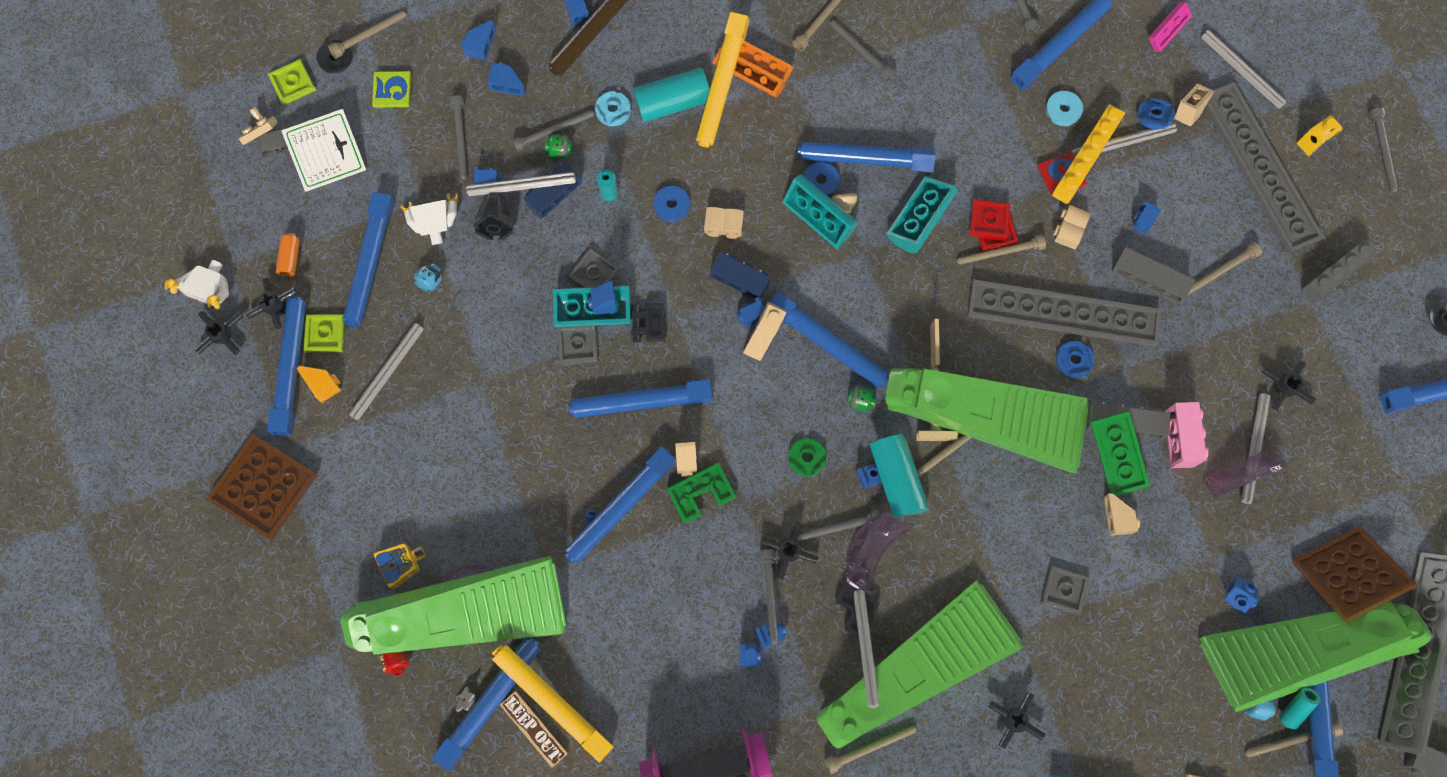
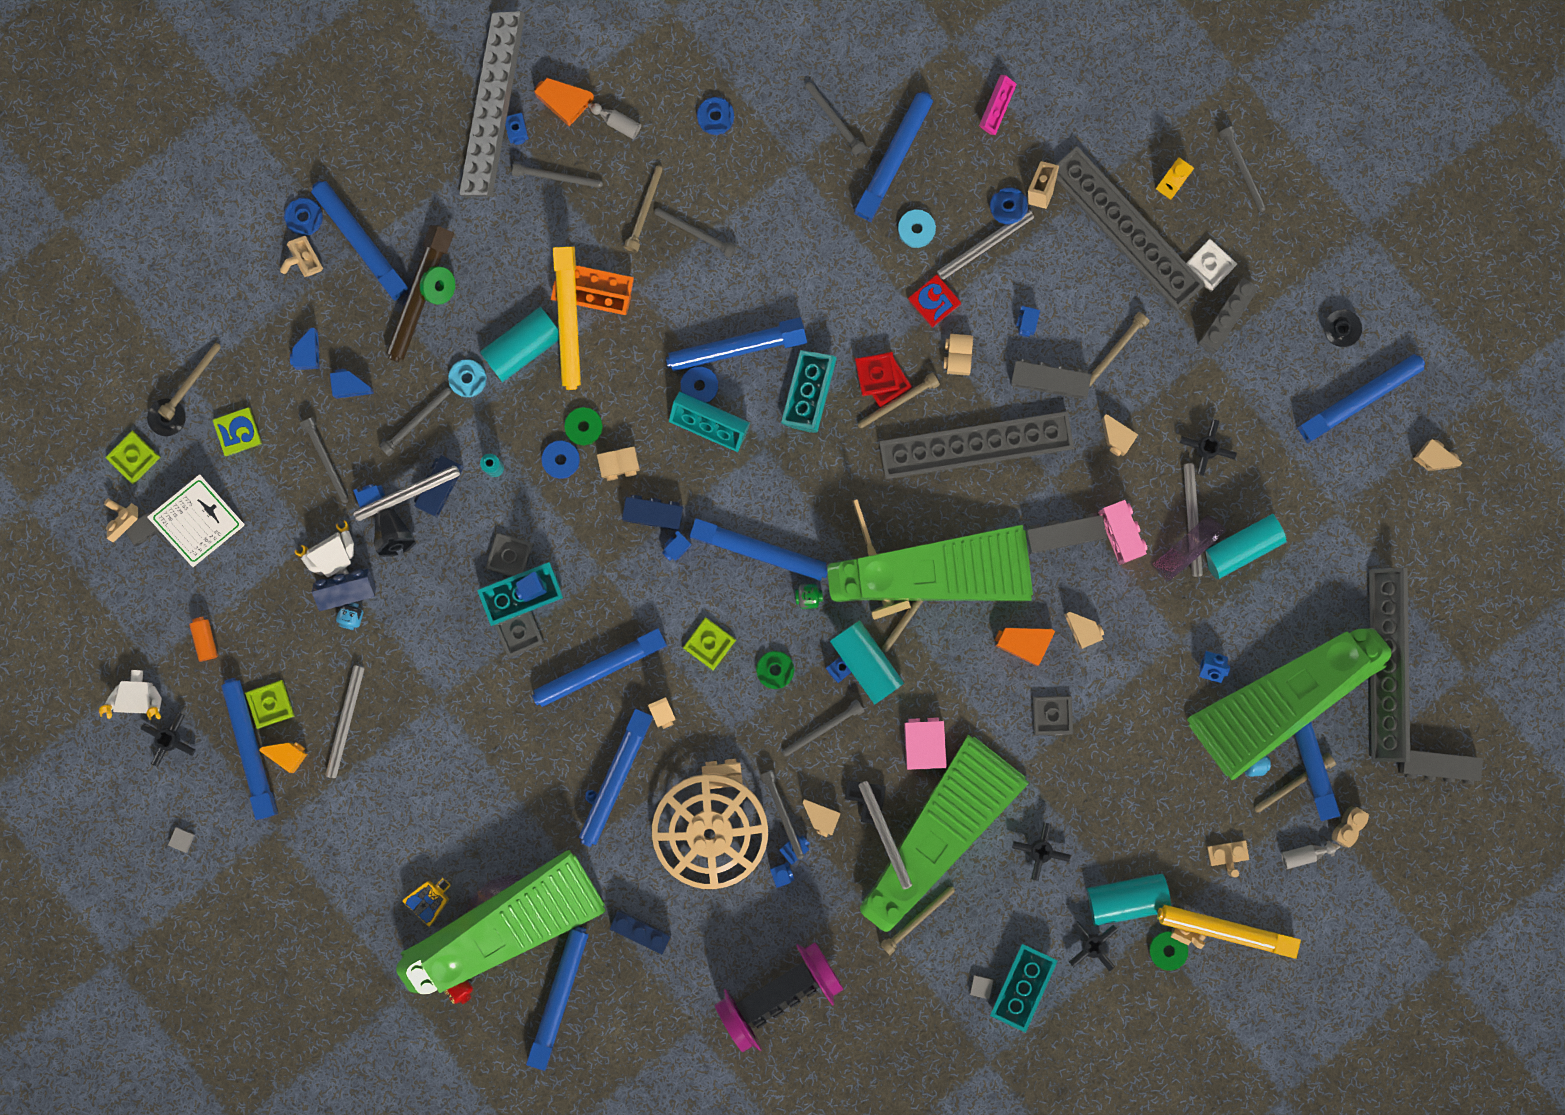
camera: 20 degrees left, 10 degrees up
(193, 429) = (181, 839): none -> light grey tile
(262, 487) = (270, 872): reddish brown plate -> none
(272, 303) = (207, 698): black bar -> none
(379, 213) = (277, 569): blue brick -> none
(431, 250) = (343, 589): none -> dark blue brick
(465, 700) = (536, 1002): light grey plate -> none
(534, 729) = (608, 1006): tile -> none
(552, 702) = (615, 978): yellow brick -> none
(559, 146) = (428, 437): green head -> none
(591, 664) = (640, 932): none -> dark blue brick
(624, 20) = (446, 288): none -> green tile
(654, 320) = (585, 586): black plate -> none
(702, 192) = (578, 416): none -> green tile
(706, 586) = (710, 820): none -> tan dish
(708, 479) = (691, 722): green plate -> none
(723, 538) = (730, 769): none -> tan brick
(752, 412) = (709, 643): none -> lime tile
(764, 331) = (695, 561): tan slope -> none
(796, 547) = (781, 770): black bar -> none
(807, 613) = (821, 818): none -> tan slope
(845, 201) = (729, 401): tan brick -> none
(868, 549) = (860, 738): clear purple windscreen -> none
(931, 575) = (925, 744): none -> bright pink brick
(1058, 510) = (1025, 643): none -> orange slope
(1065, 364) = (999, 499): blue tile -> none
(1088, 154) = (954, 273): yellow arch -> none
(1119, 453) = (1066, 570): green plate -> none
(1203, 346) = (1117, 435): none -> tan slope
(1248, 73) = (1083, 126): light grey axle -> none
(1299, 708) = (1290, 755): teal brick -> none
(1304, 487) = (1245, 546): none -> teal brick
(1334, 223) = (1211, 264): none -> white tile
(1353, 574) = (1309, 614): reddish brown plate -> none

